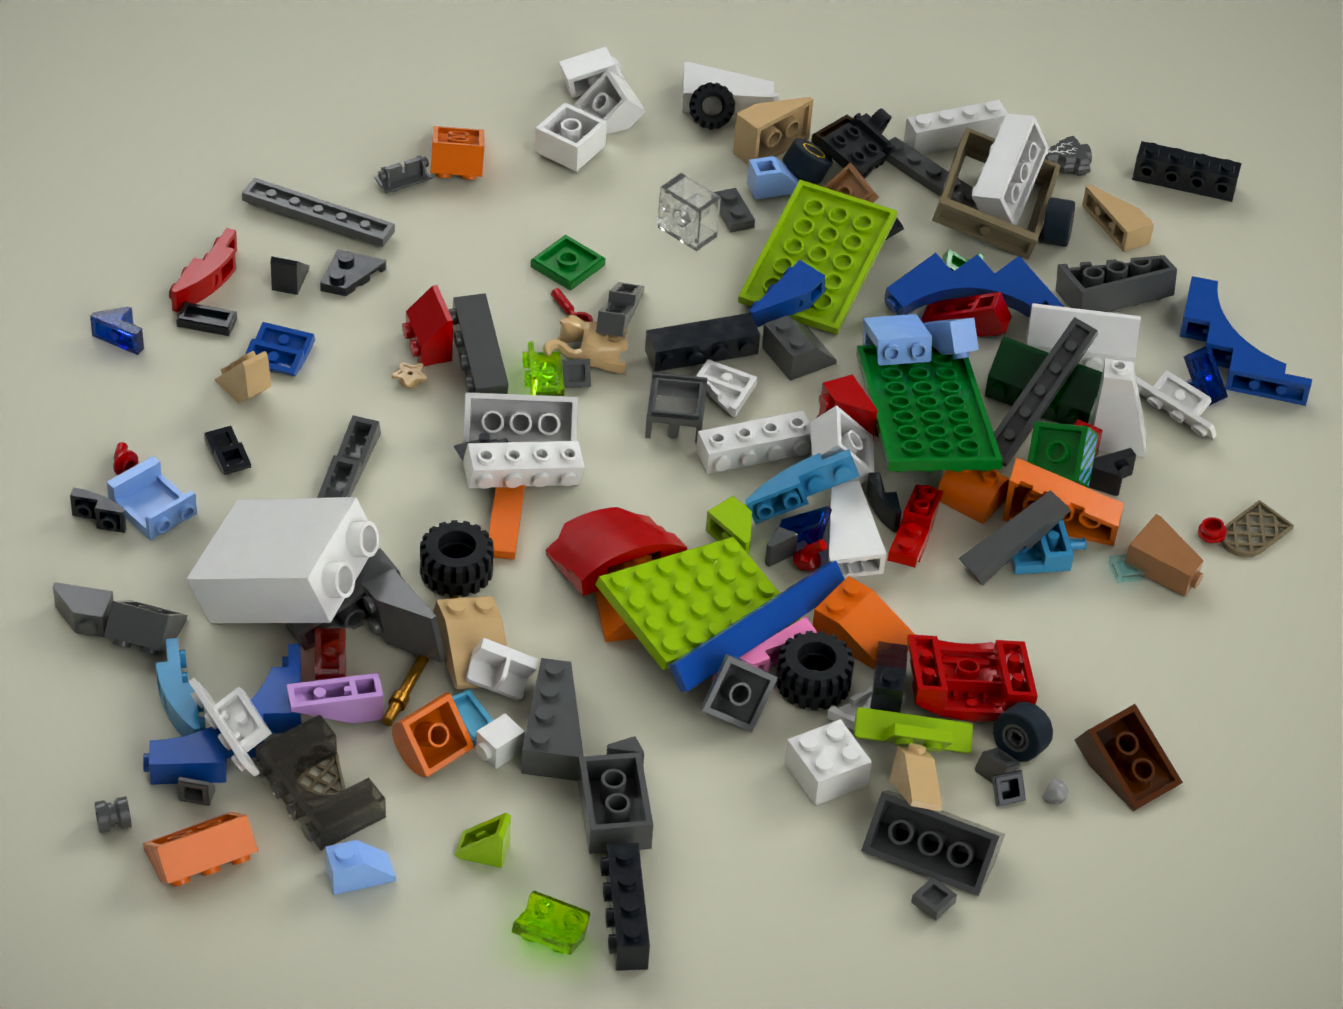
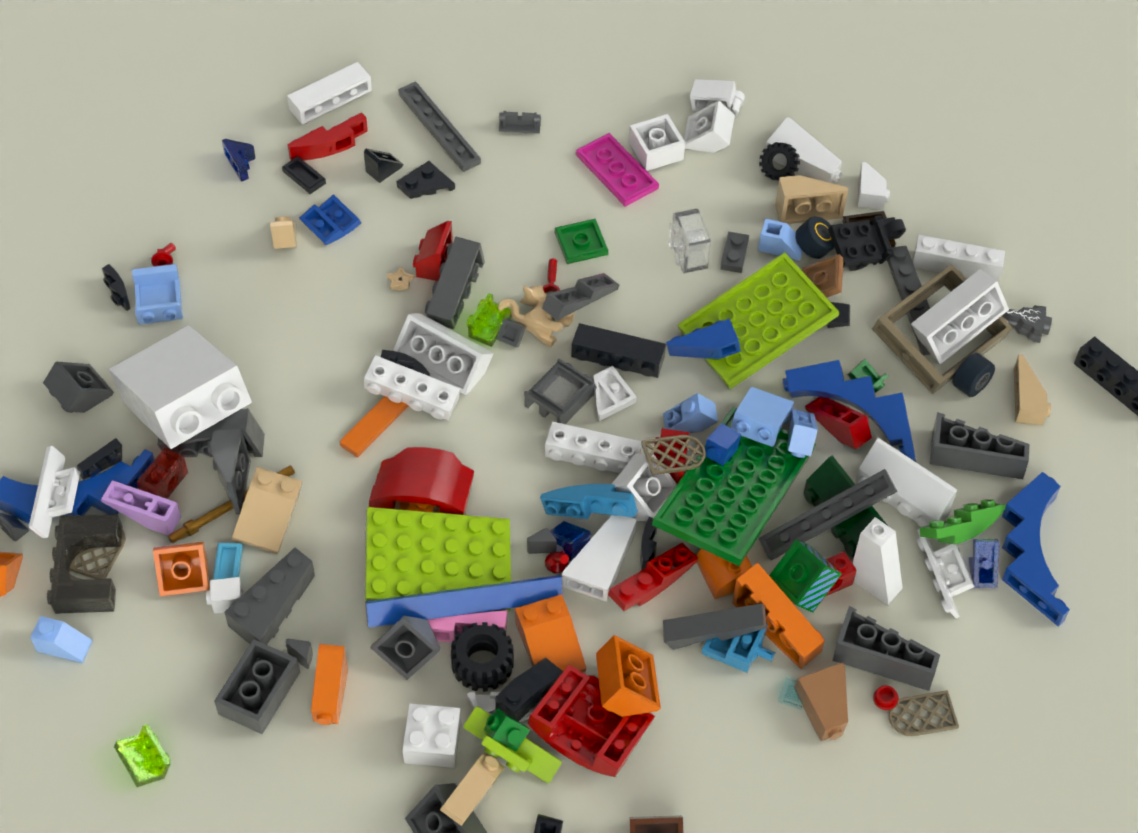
camera: 35 degrees right, 10 degrees up
(83, 607) = (48, 352): slope -> none
(167, 225) = (329, 93): none -> white brick
(176, 691) = (60, 437): dark azure slope -> none
(226, 450) = (236, 281): black slope -> none
(258, 662) = (101, 459): none -> black wing
(351, 458) = (309, 327): dark grey slope -> none
(456, 558) = (305, 424): black tyre -> none
(457, 152) = (570, 119): orange slope -> none
(486, 842) = (156, 669): lime slope -> none
(500, 669) = (265, 541): white panel -> none
(544, 181) = (617, 169): none -> dark pink tile
(626, 906) = (202, 771): black brick -> none
(686, 764) = (329, 684): none -> orange slope
(729, 520) = (522, 509): lime slope -> none
(795, 348) = (686, 379): dark grey slope -> none
(824, 365) = (691, 415): none -> light blue slope
(827, 98) = (872, 188): none -> white slope
(875, 385) = (646, 443): none -> dark tan window
(889, 374) = (722, 444): none -> blue brick
(903, 710) = (506, 730): none -> green bracket
(971, 621) = (627, 678): none -> orange slope
(994, 763) = (559, 804): dark grey slope -> none
(1023, 731) = (592, 790): black wheel -> none
(1110, 470) = (837, 603): black slope -> none
(1160, 349) = (965, 523): none -> bright green slope
(1182, 490) = (884, 652): none -> dark grey wedge

